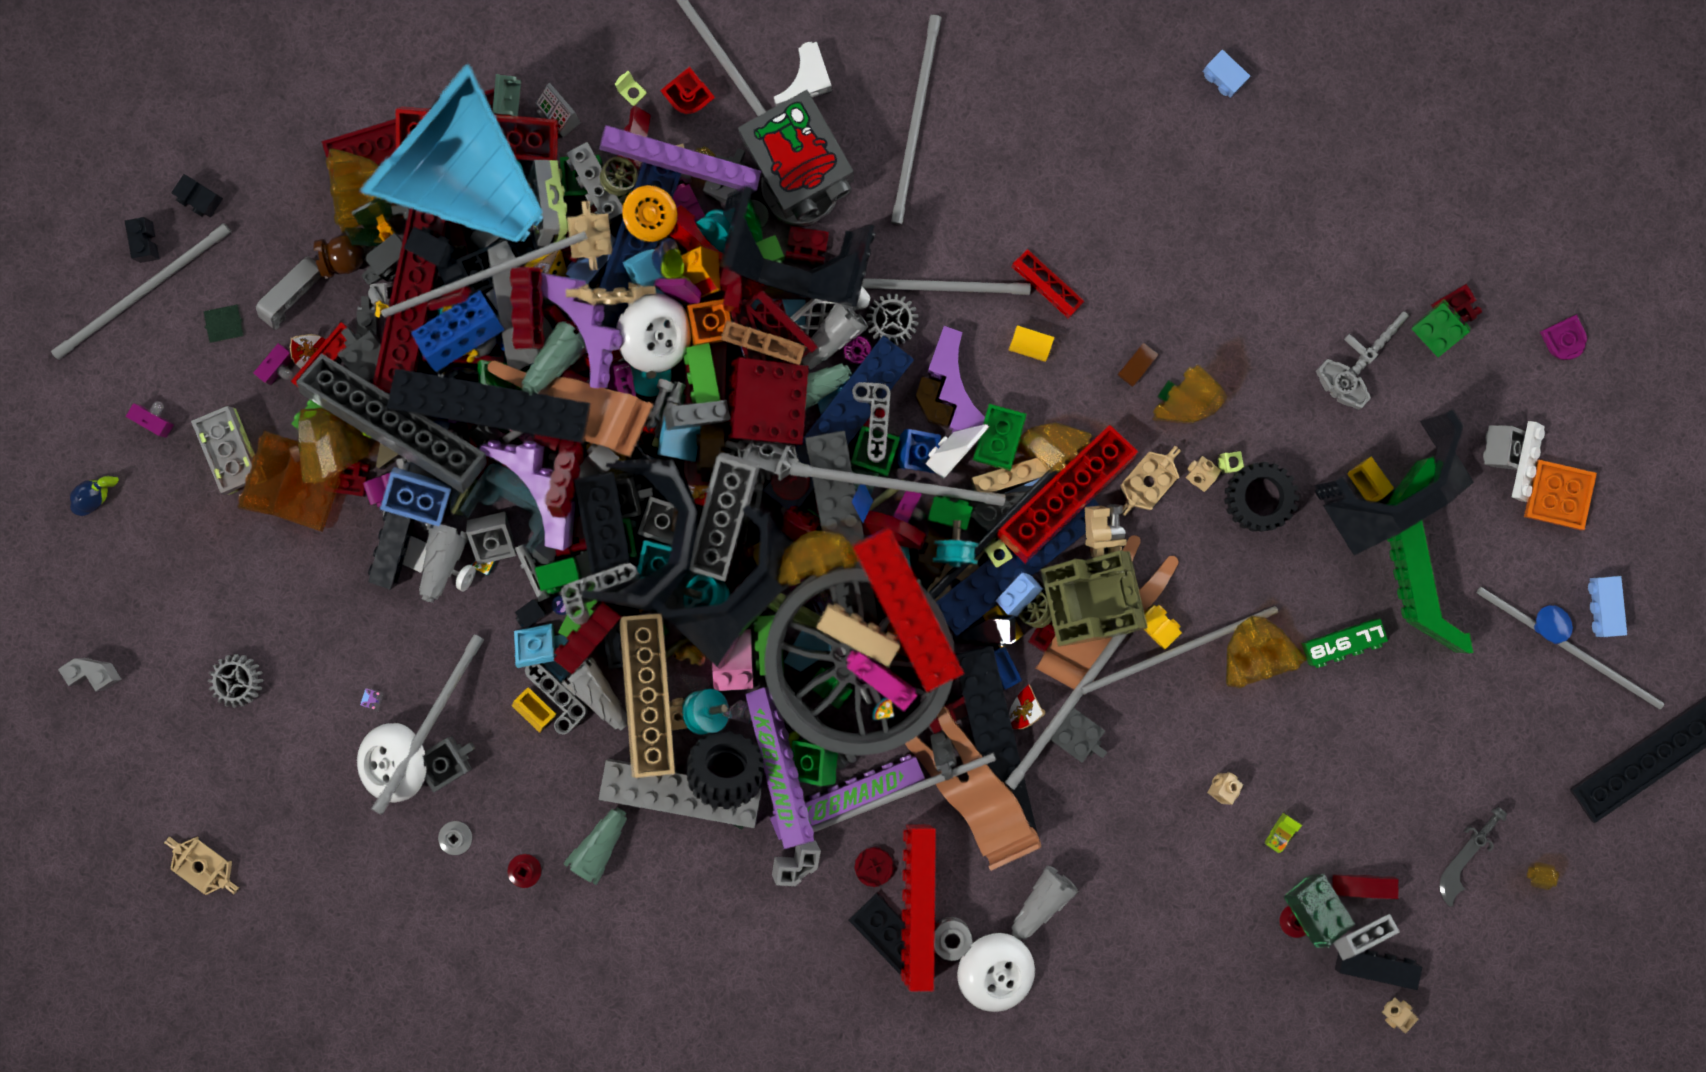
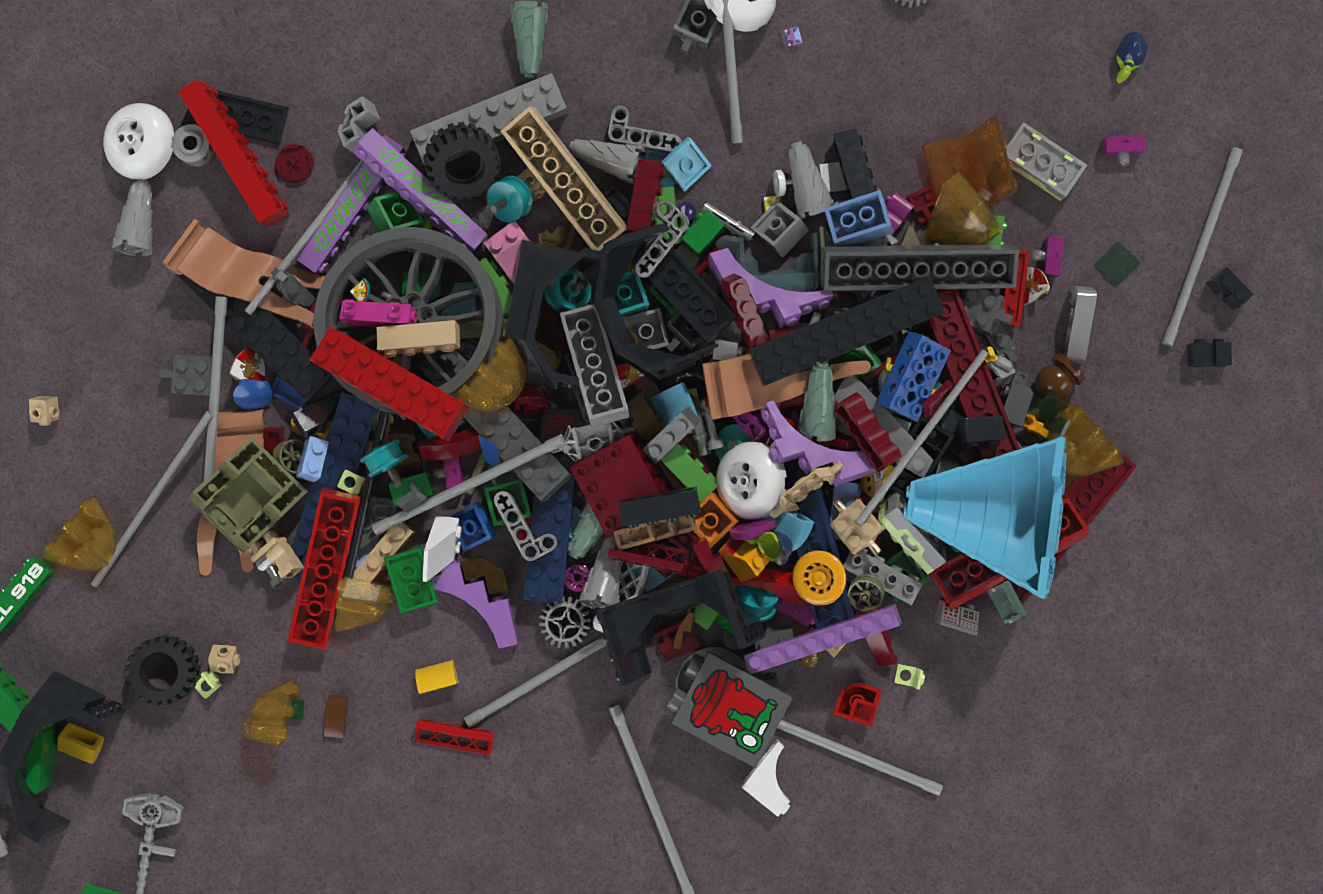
camera: 145 degrees right, 0 degrees up
(530, 613) = (706, 188): black brick -> none
(533, 709) = (653, 112): yellow brick -> none
(744, 357) = (659, 506): none -> black brick
(790, 249) = (686, 625): none -> reddish brown slope
(952, 502) = (412, 498): none -> dark grey tile
(1036, 685) = (252, 394): none -> blue dish
(1160, 627) = (179, 508): yellow brick -> none
(1163, 472) = (256, 637): tan plate -> none

